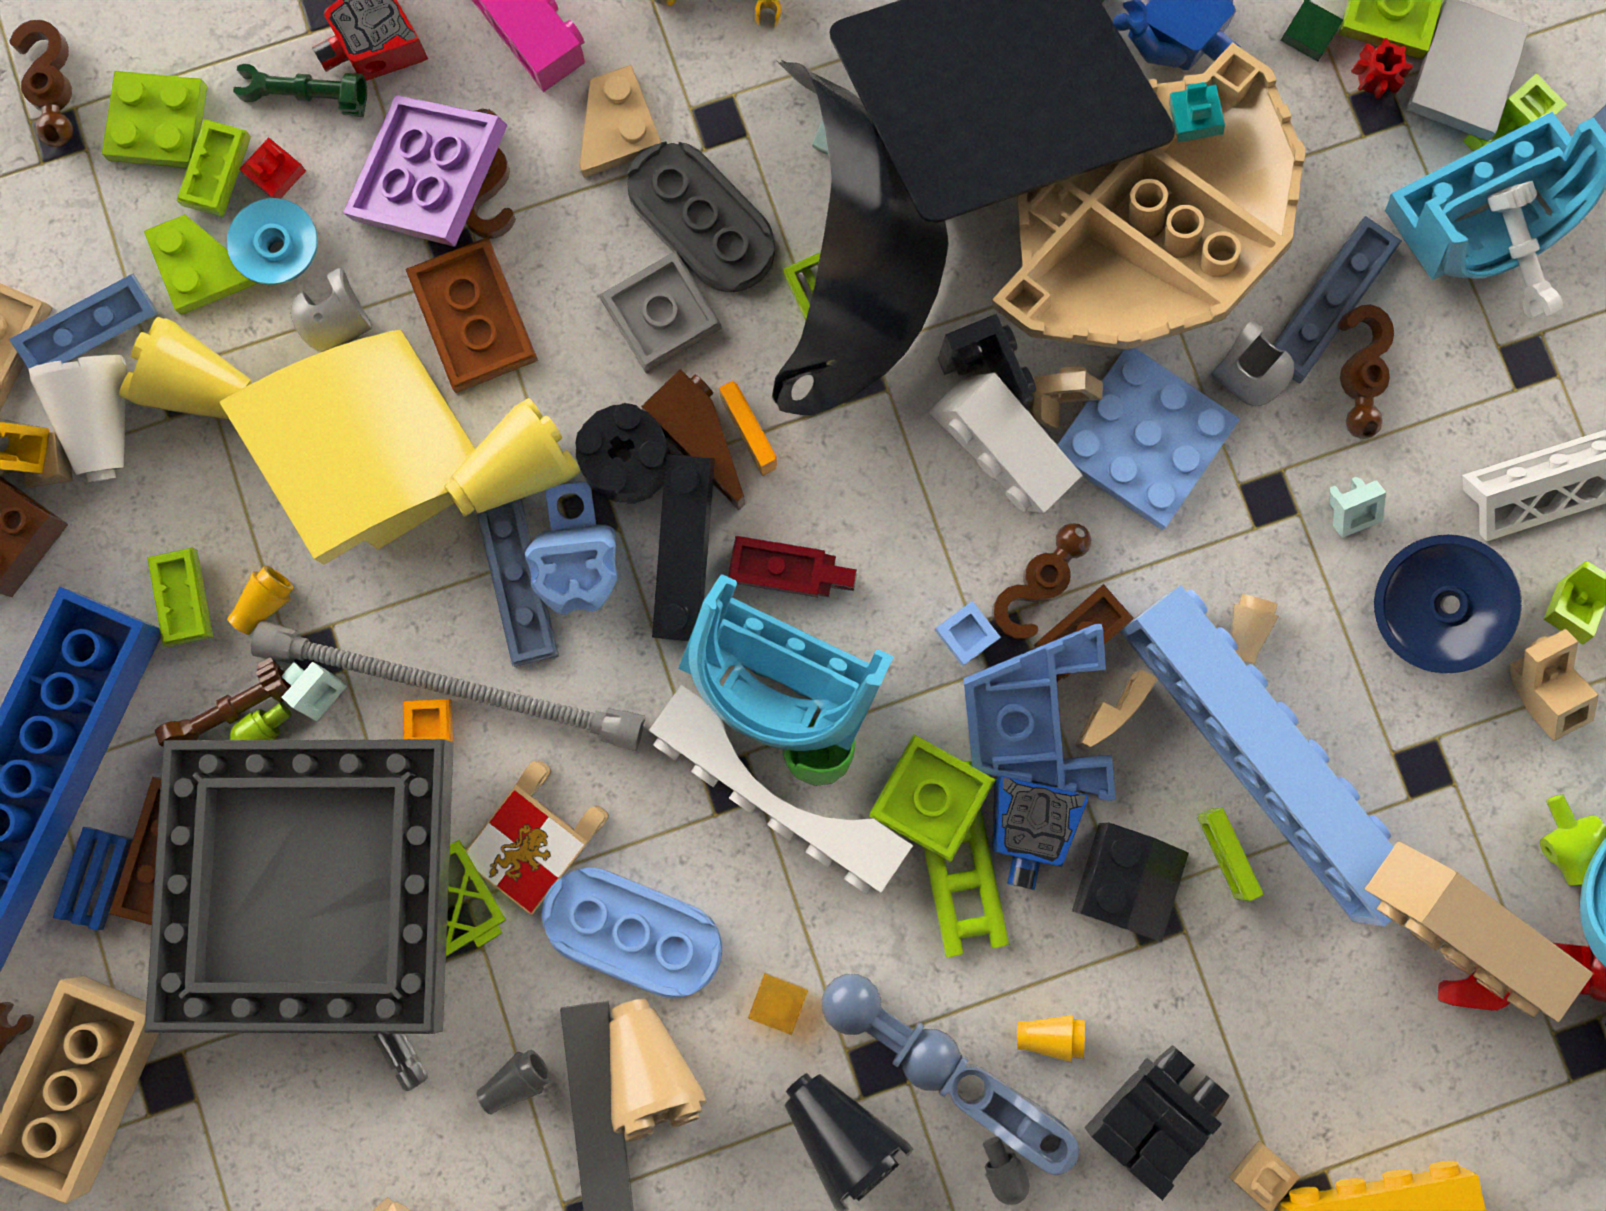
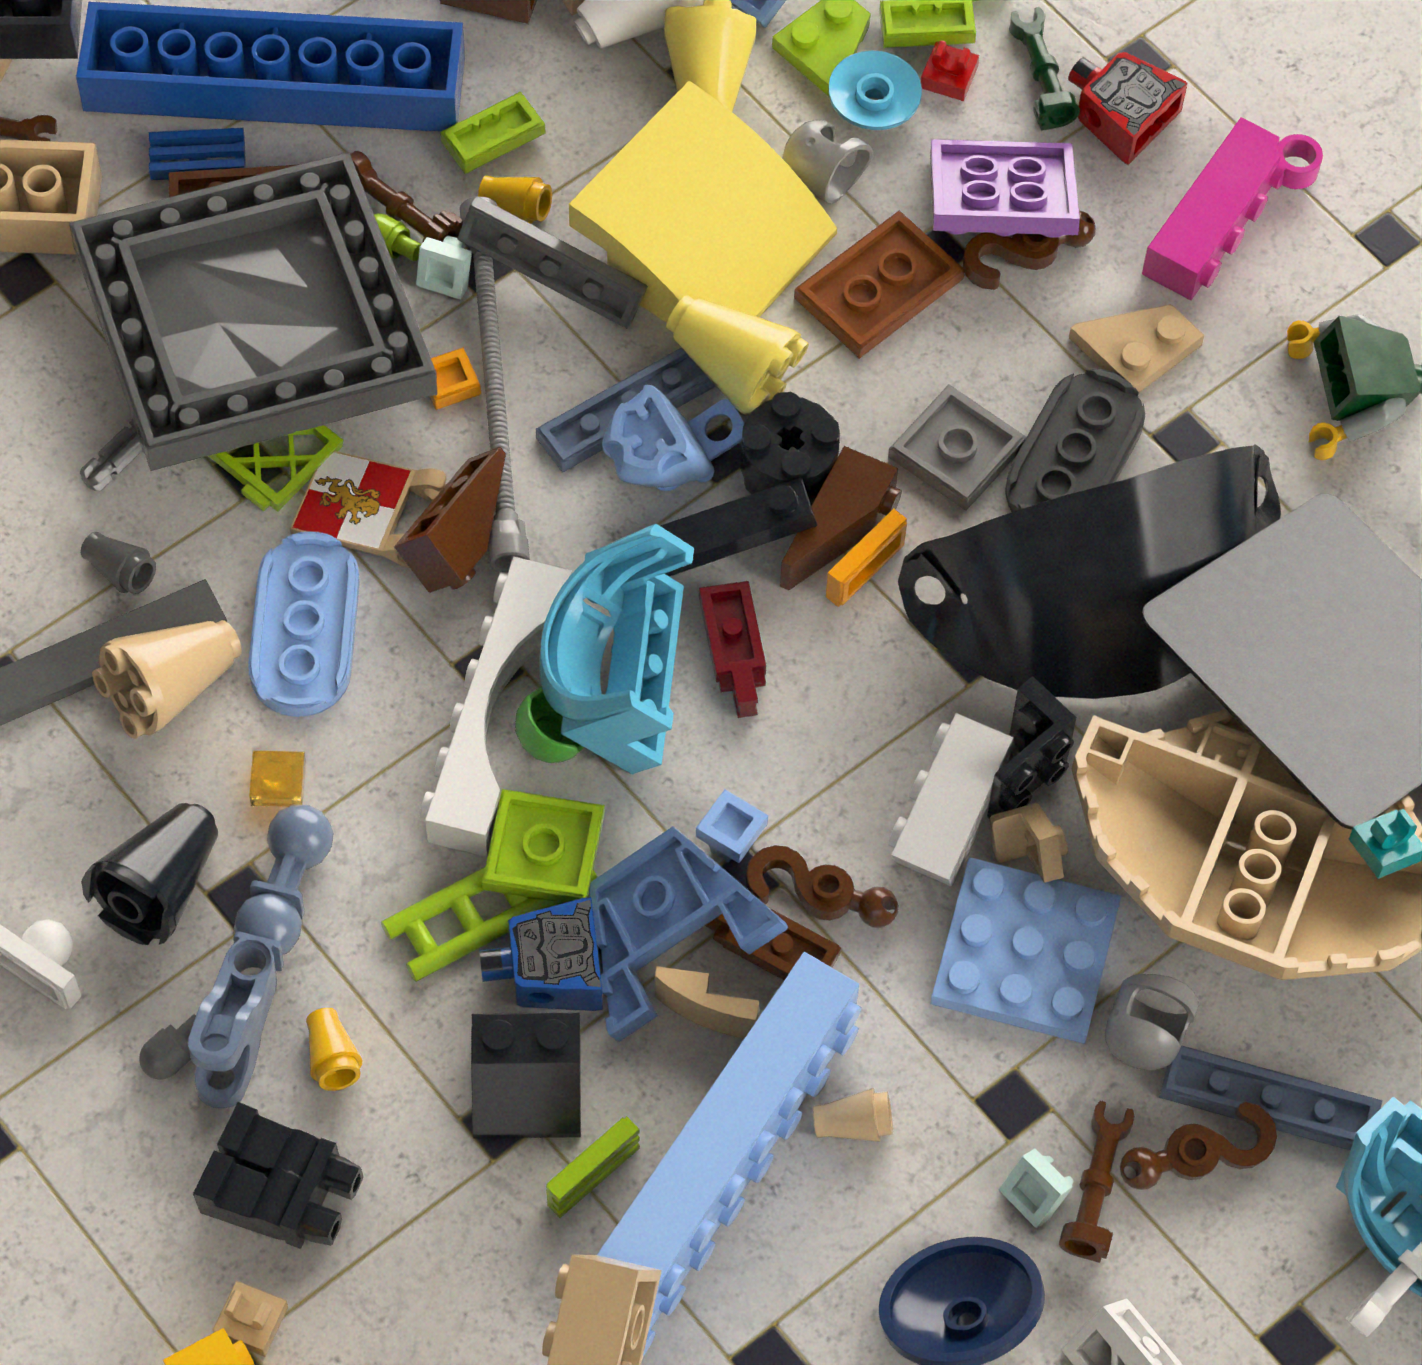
camera: 70 degrees right, 20 degrees down
(351, 593) = (552, 262): none -> dark grey tile
(591, 769) = (455, 525): none -> reddish brown slope
(1404, 487) = (1083, 1236): none -> reddish brown piece

